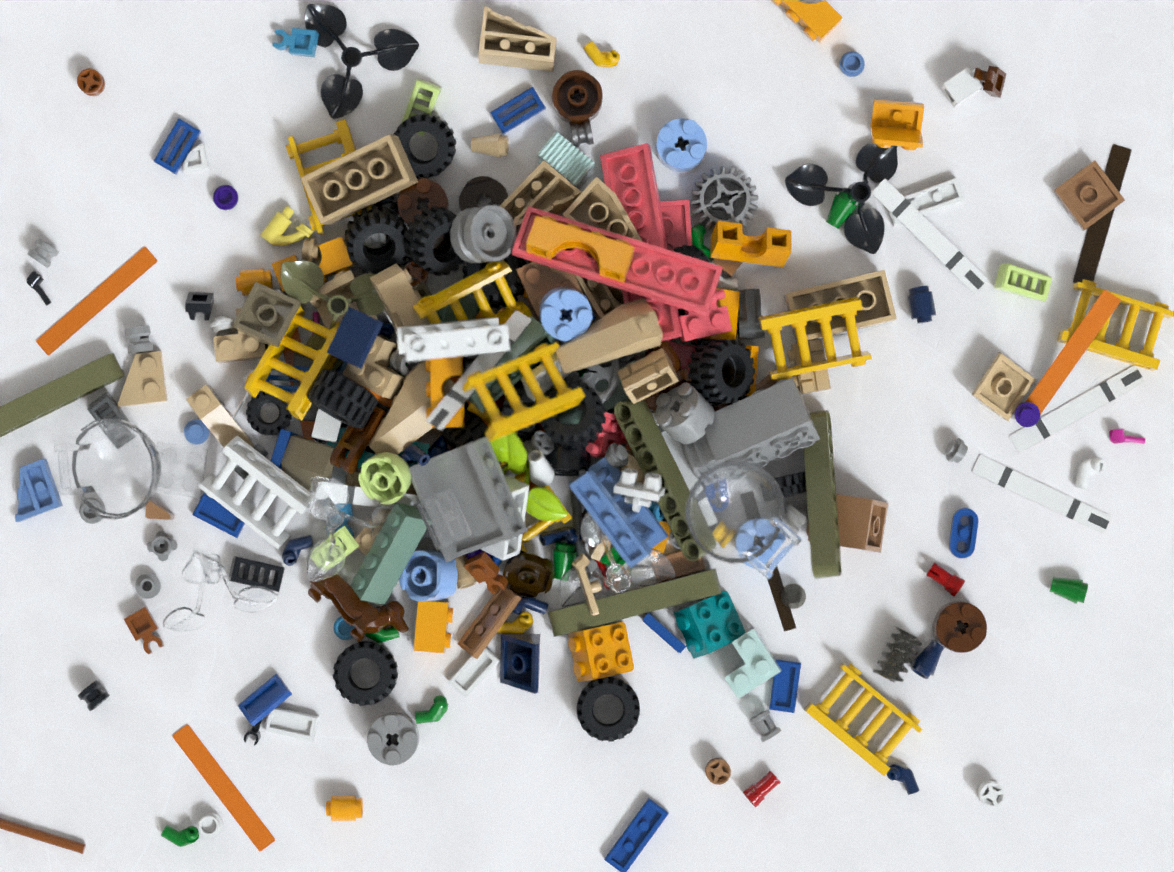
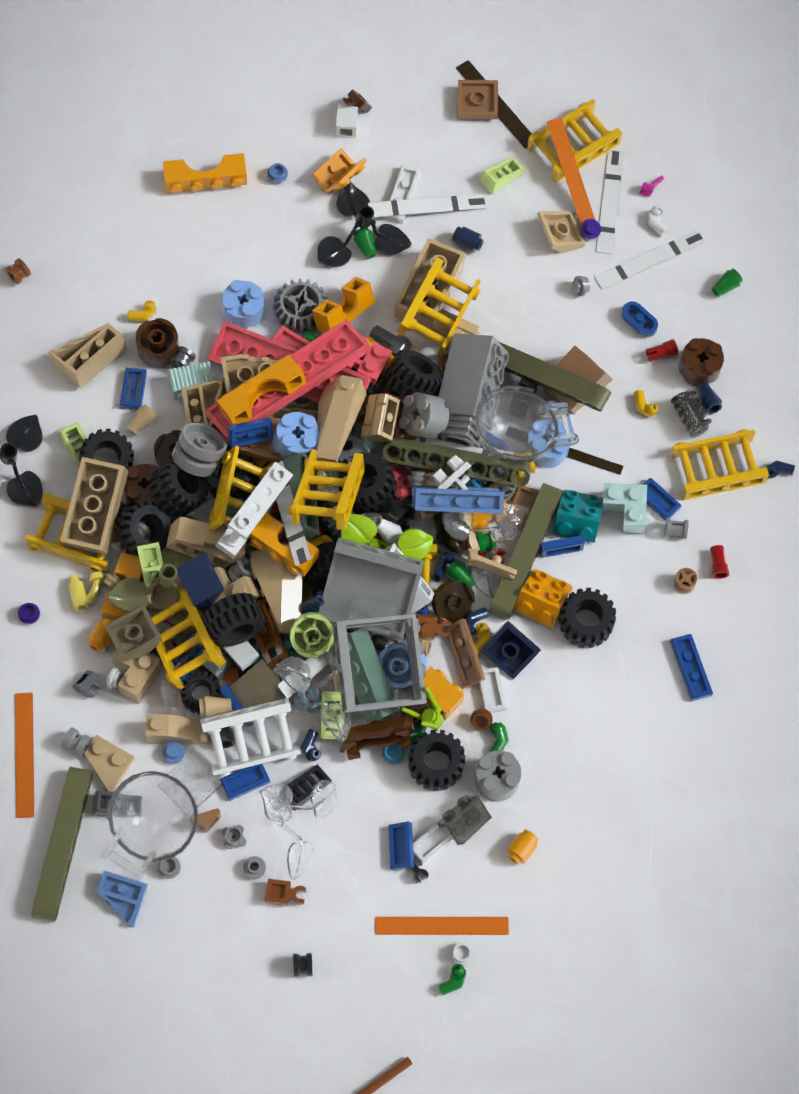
camera: 60 degrees left, 20 degrees down
(258, 438) = (214, 705): none -> tan cone
(331, 738) = (465, 818): none -> clear smoke bracket
(346, 273) = (150, 561): none -> yellowish green slope
(368, 596) = (415, 649): none -> light grey window
(398, 640) = (430, 717): none -> lime plant
(437, 683) = (481, 719): none -> dark orange plate
(534, 269) = (250, 429): none -> blue tile
(793, 596) = (600, 450): clear smoke plate -> none
(871, 603) = (643, 407): none -> yellow arm

